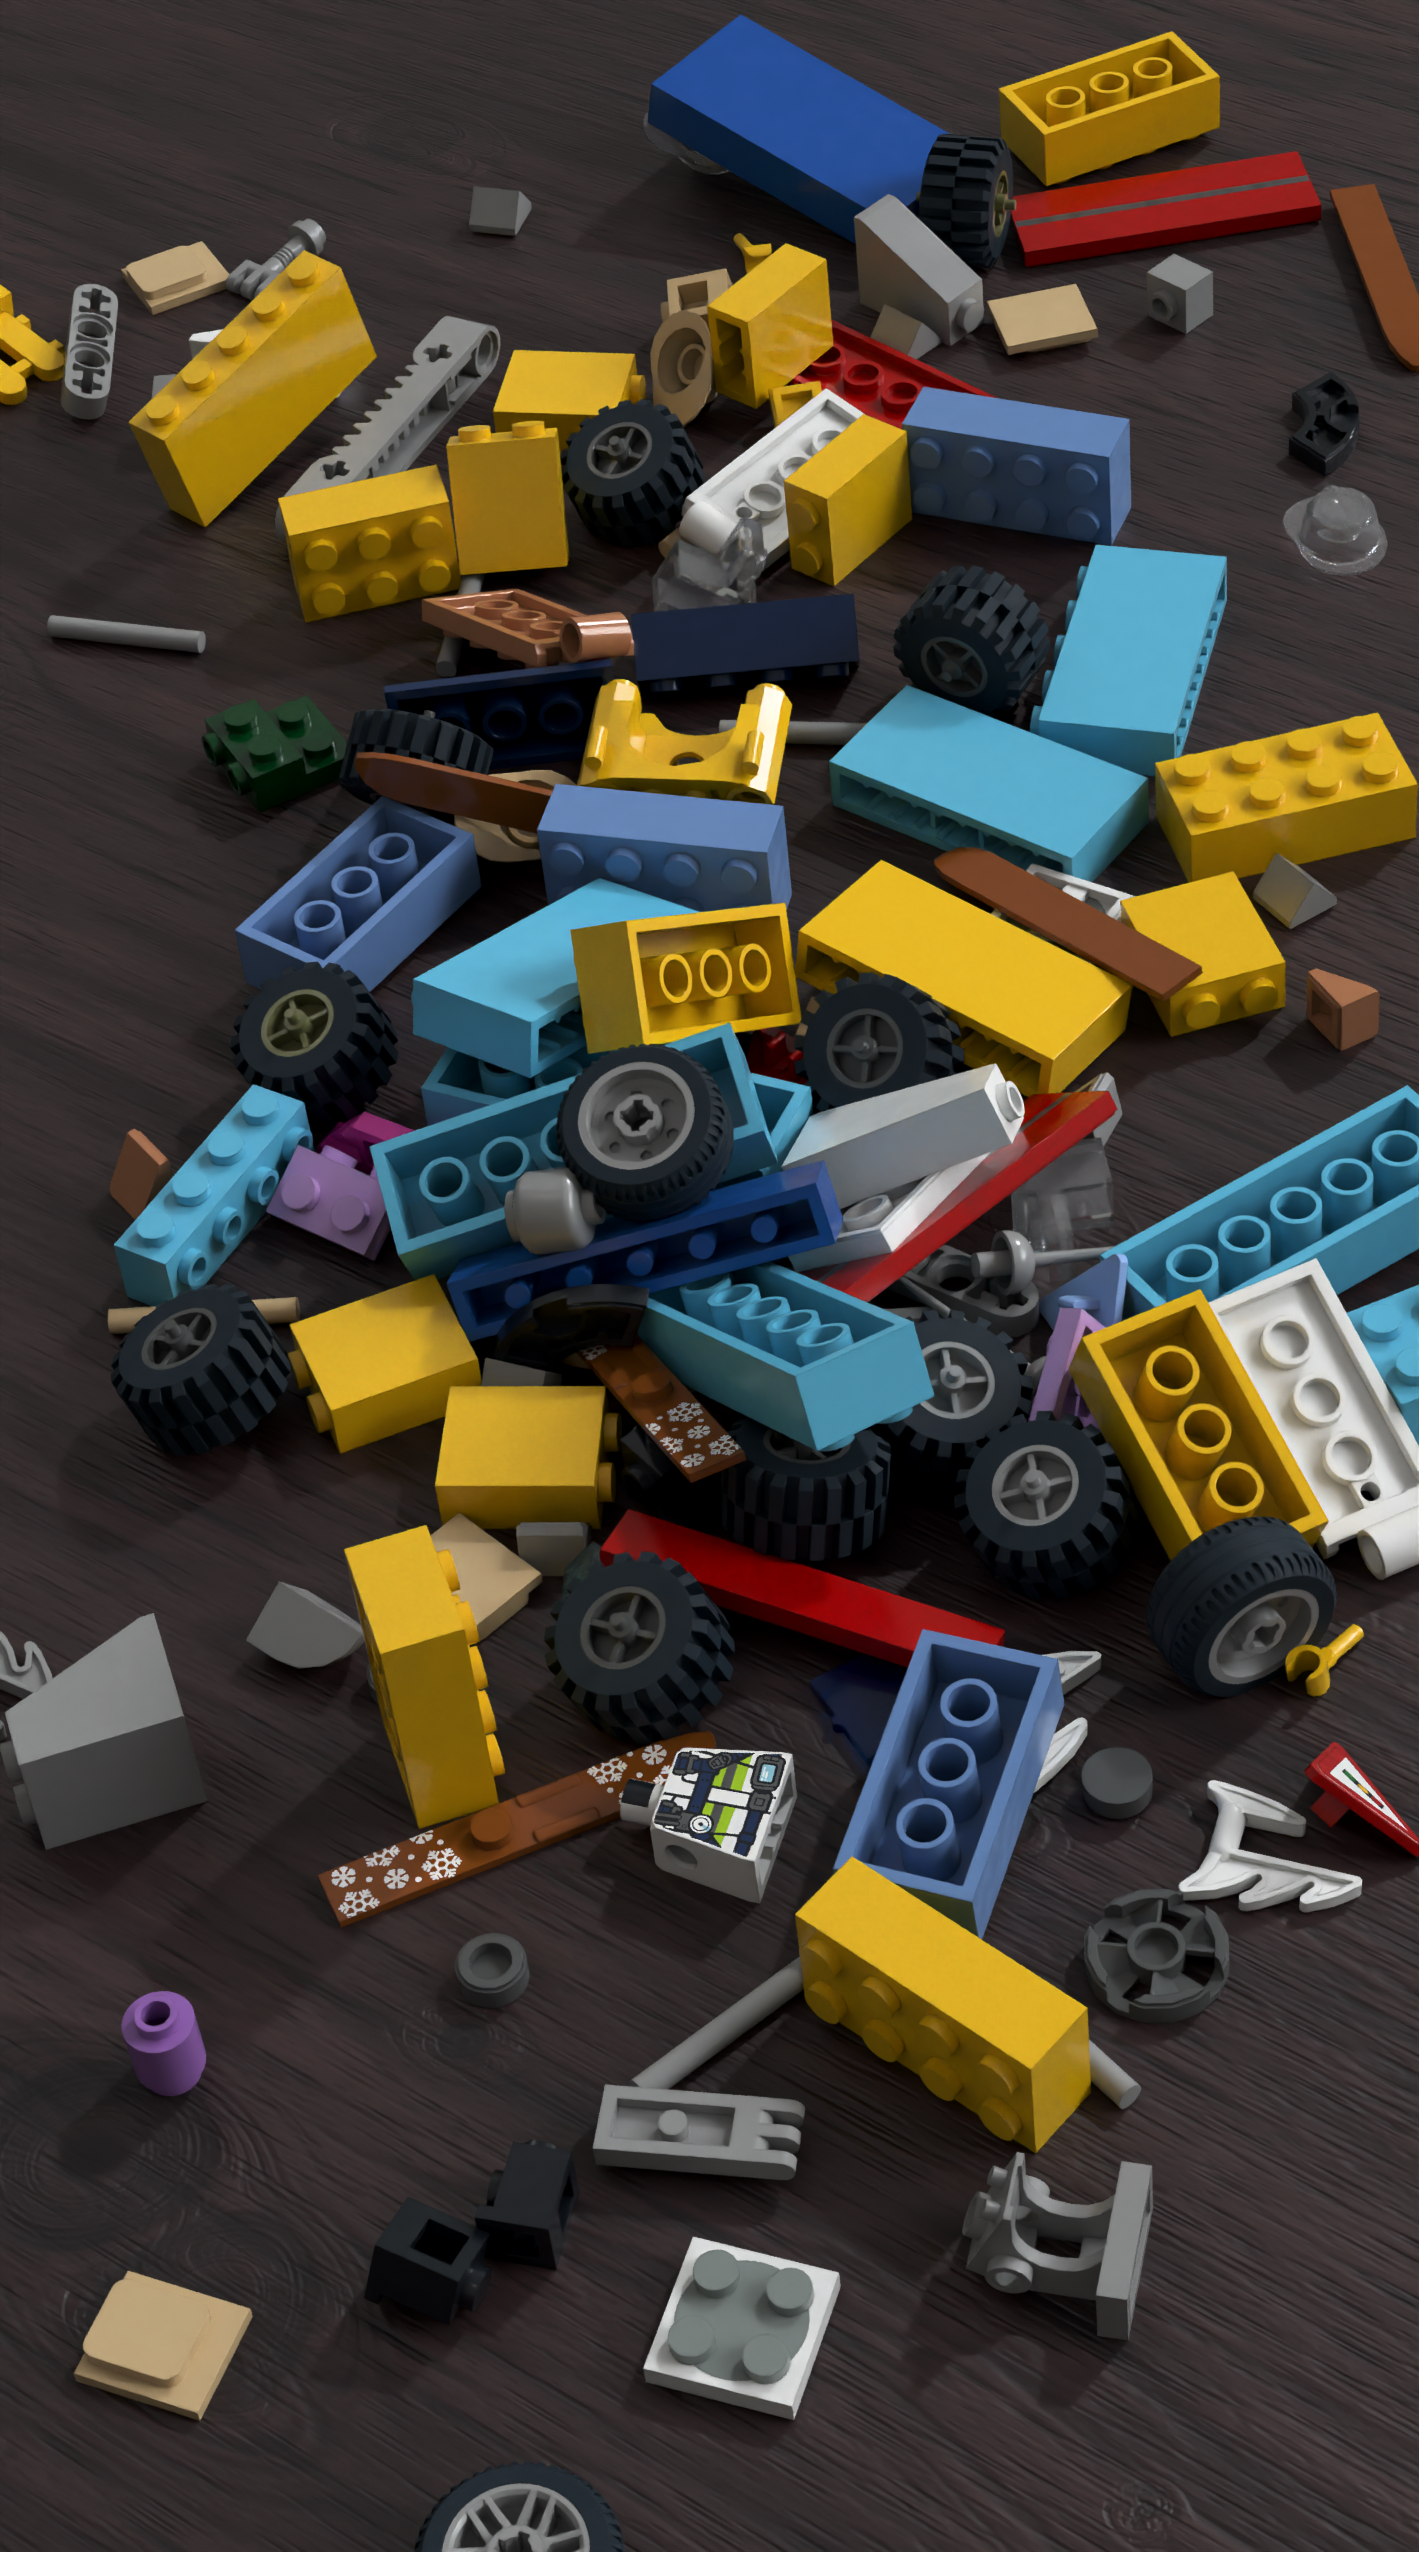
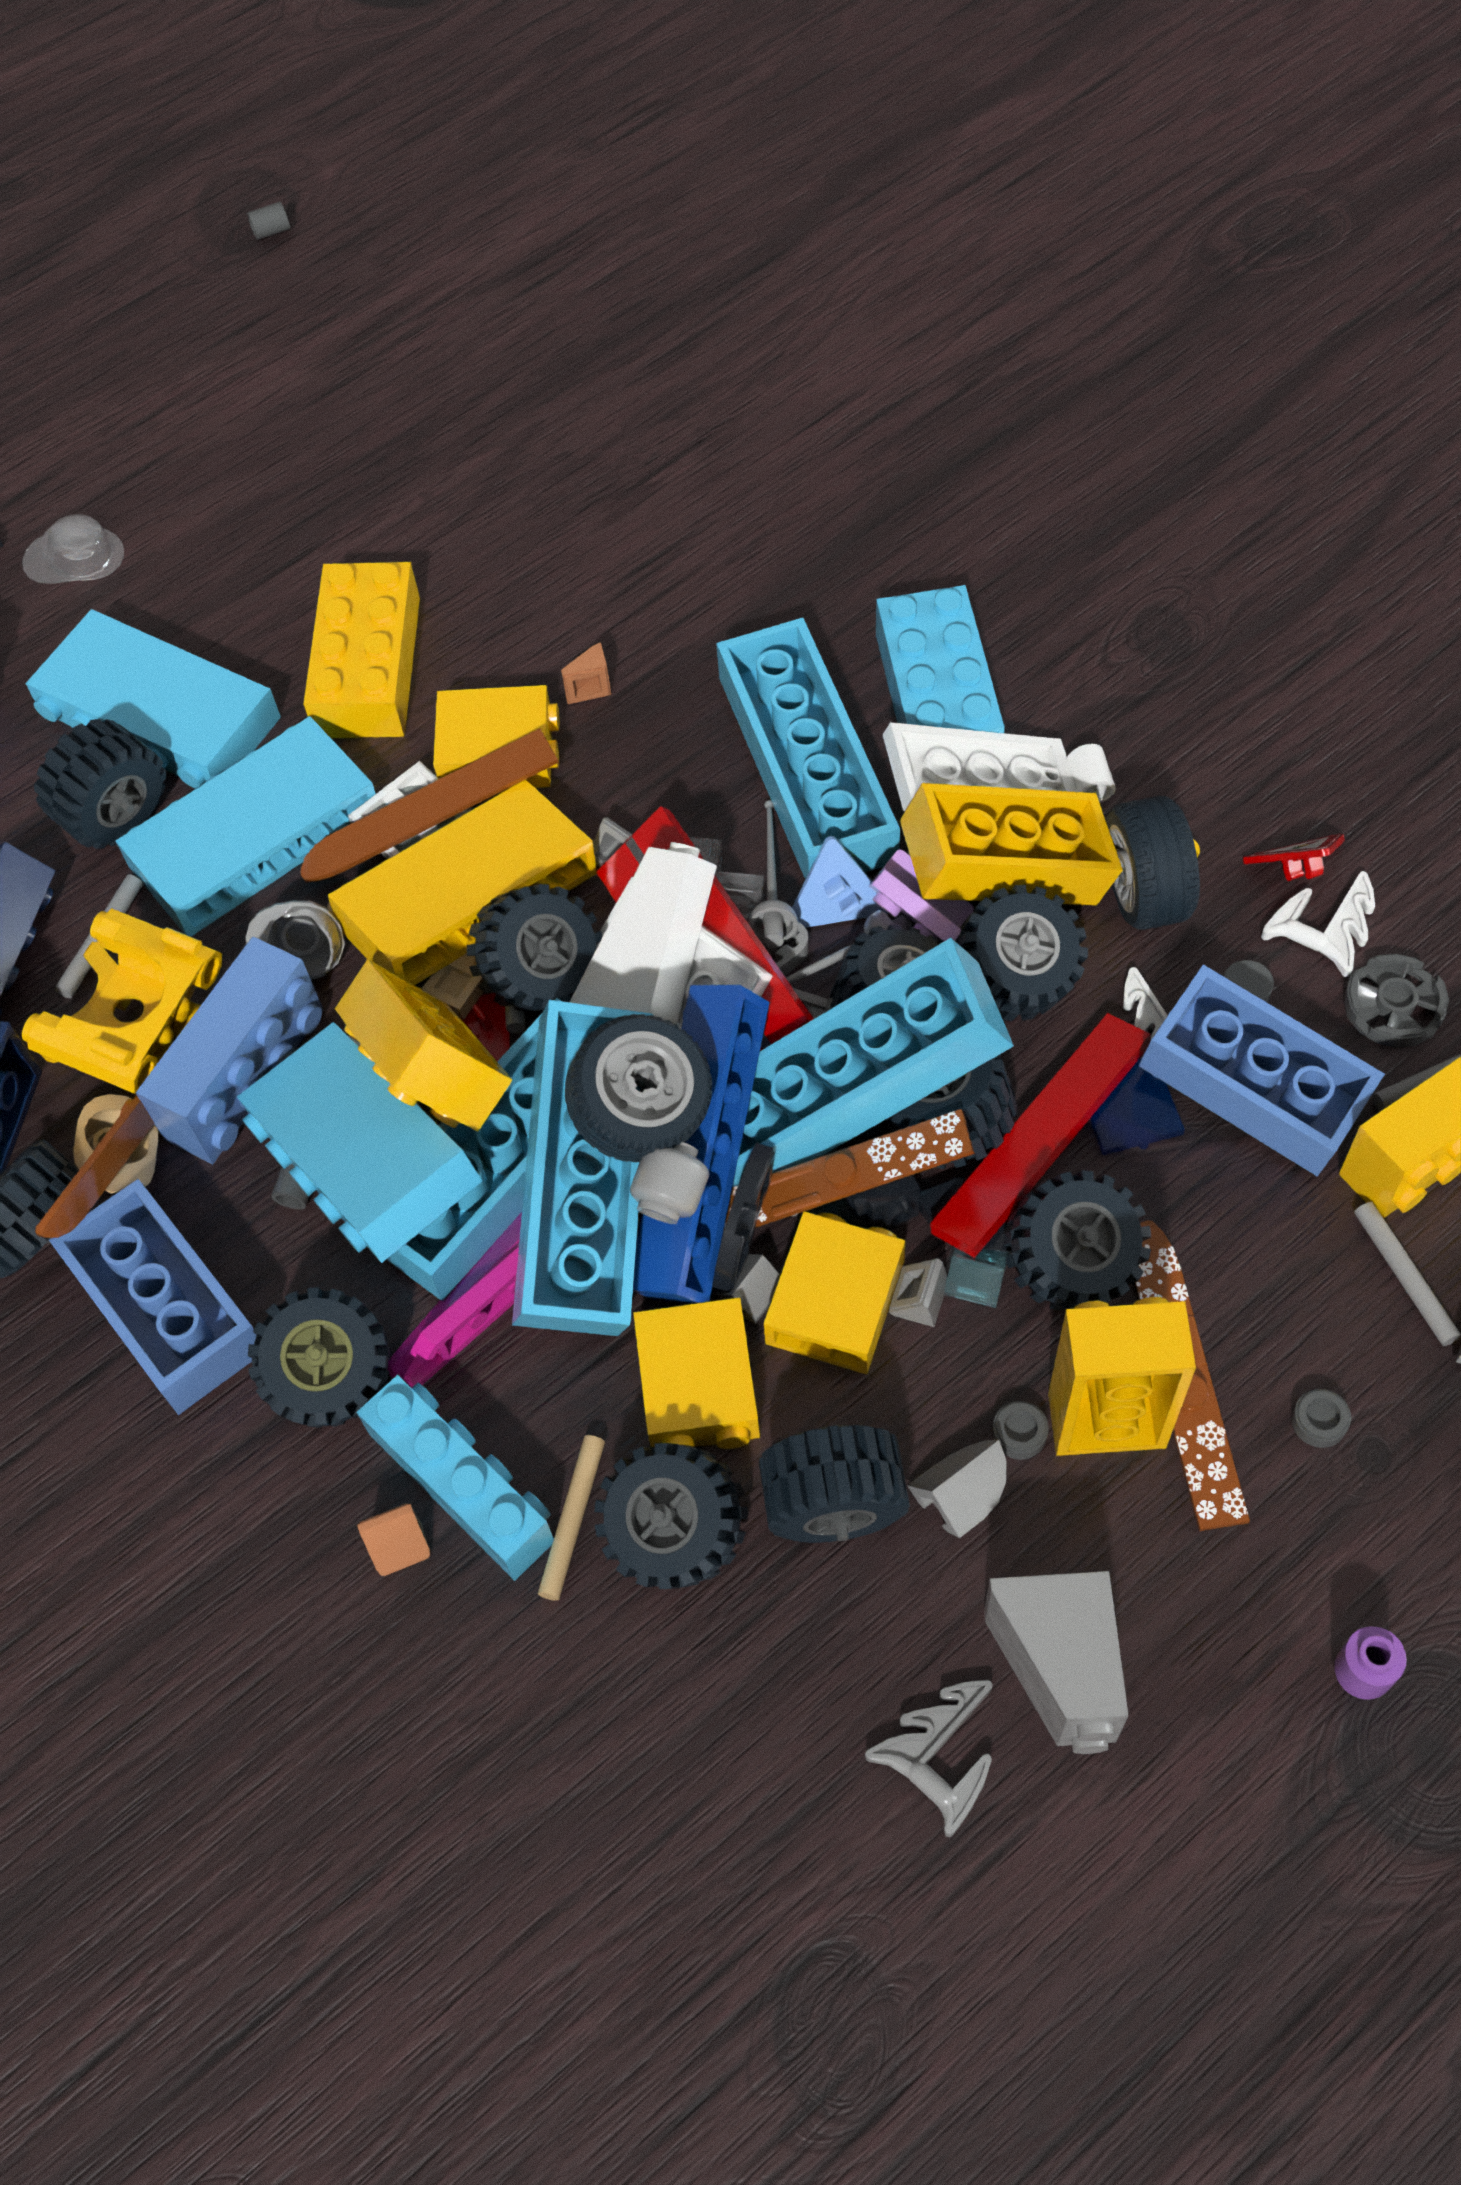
camera: 75 degrees left, 15 degrees up
(260, 1485) = (833, 1483): none -> black wheel
(332, 1201) = (492, 1379): lavender bracket -> none
(488, 1573) = (936, 1365): tan piece -> none
(717, 1816) = (1230, 1231): torso -> none
(831, 861) = (303, 931): none -> light grey piece
(1291, 893) = (449, 674): light grey slope -> none

